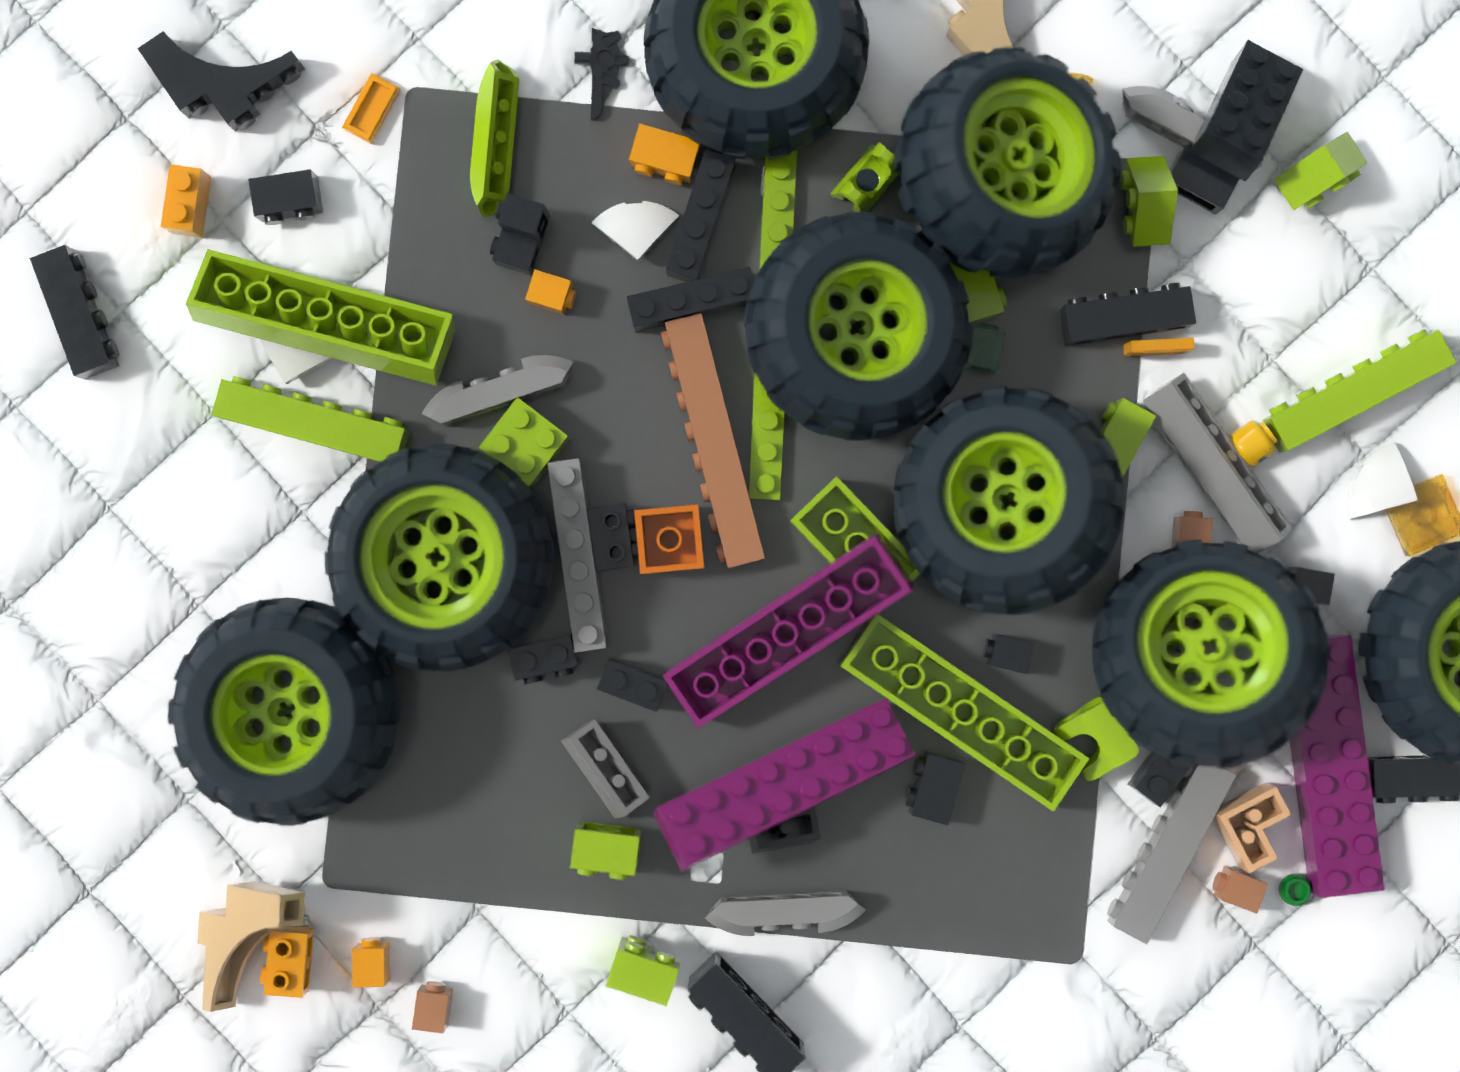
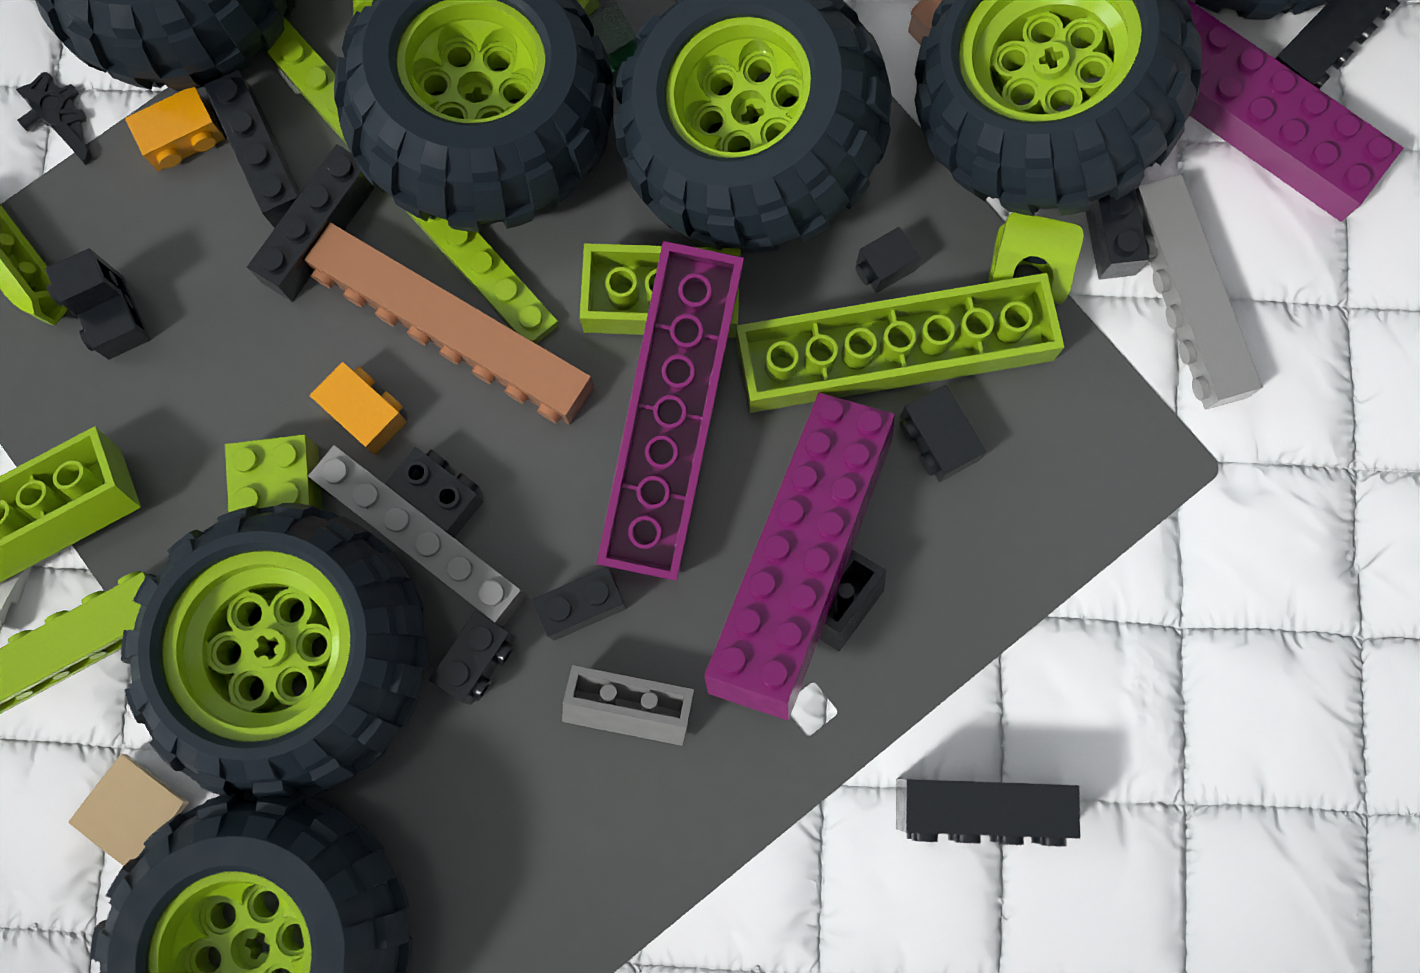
camera: 45 degrees left, 10 degrees down
(276, 557) = (126, 809): none -> tan tile
(459, 403) = (202, 472): light grey brick -> none
(550, 292) = (177, 333): light orange brick -> none
(606, 849) = (700, 778): lime brick -> none
(614, 443) = (359, 408): none -> light orange brick
(636, 225) = (206, 212): white brick -> none
(643, 973) = (849, 861): lime brick -> none
(669, 539) = (488, 441): orange brick -> none
(827, 909) = (886, 716): light grey brick -> none
(1239, 889) = (1285, 269): nougat brick -> none
(1243, 824) = (1233, 212): light nougat brick -> none
(1294, 889) = (1329, 228): green plate -> none

